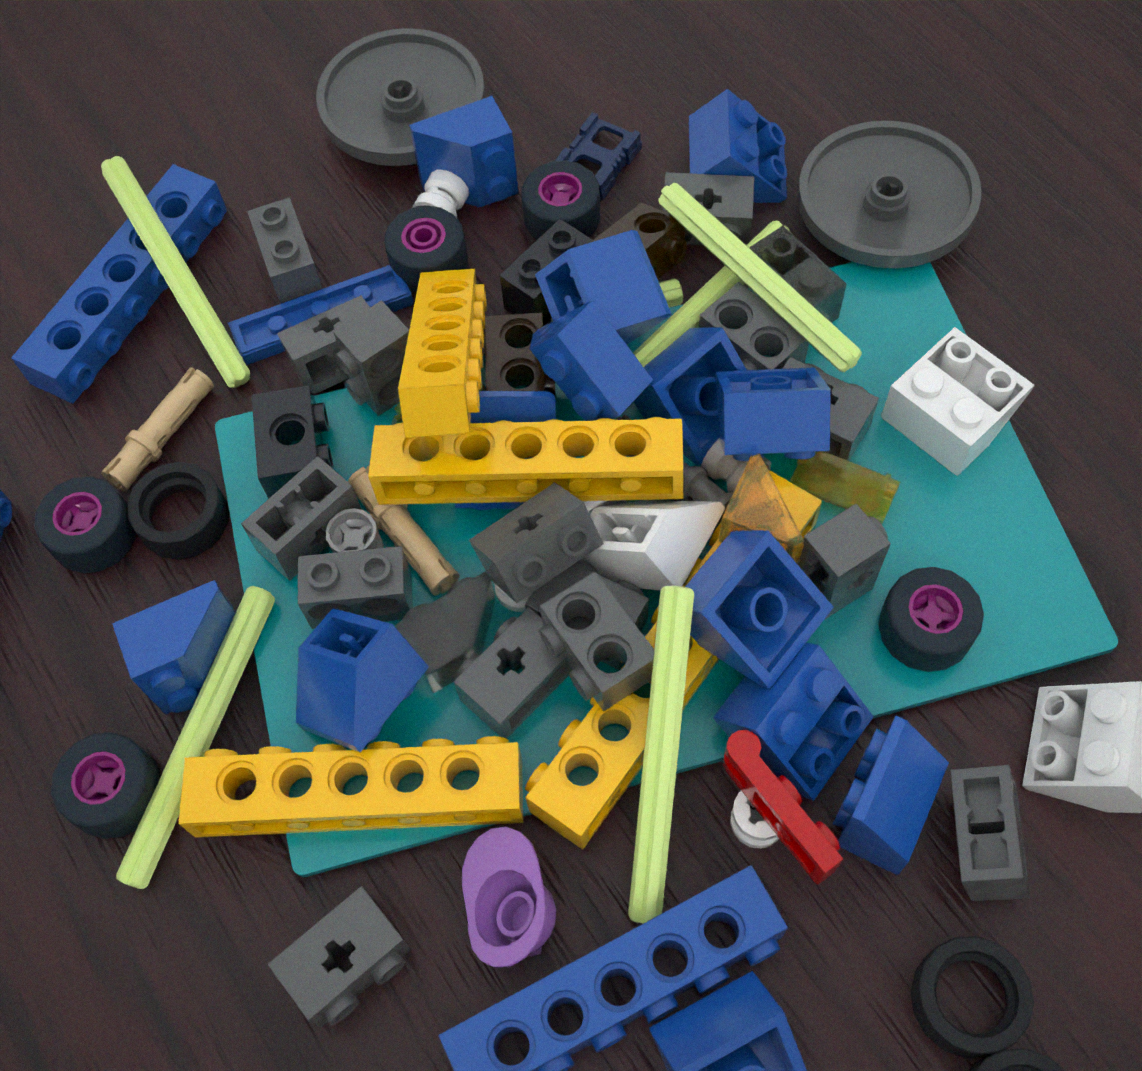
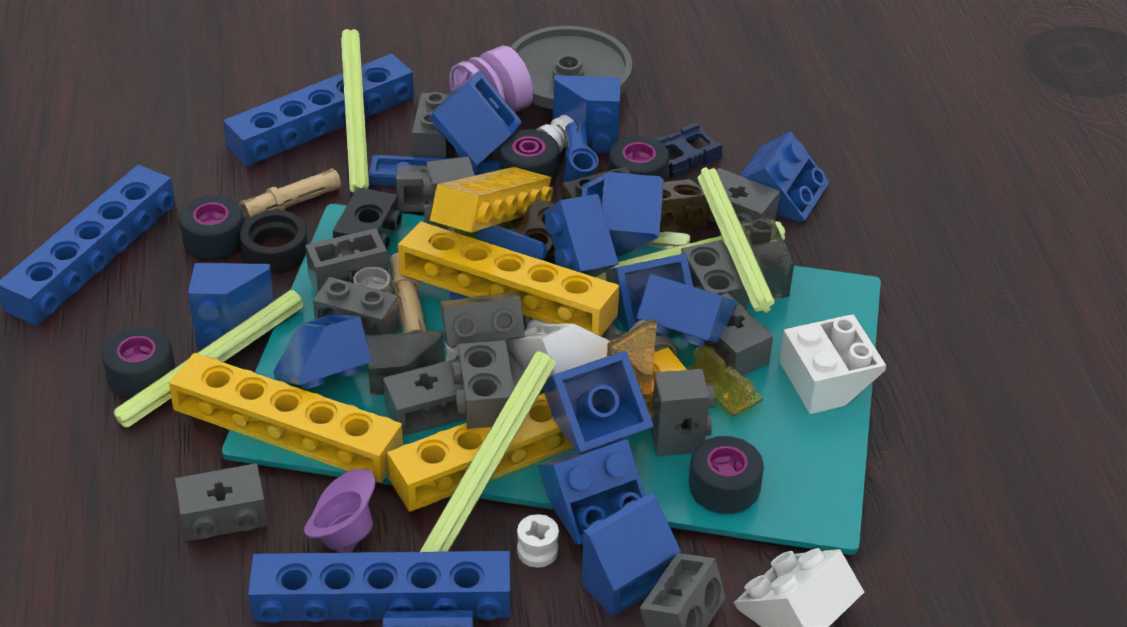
camera: 20 degrees right, 20 degrees down
(326, 164) = (505, 73): none -> lavender wheel
(340, 226) = (475, 119): none -> blue slope
(488, 222) = (580, 158): none -> blue pin
(779, 805) = (547, 523): red plate -> none
(889, 194) = (873, 235): dark grey dish -> none

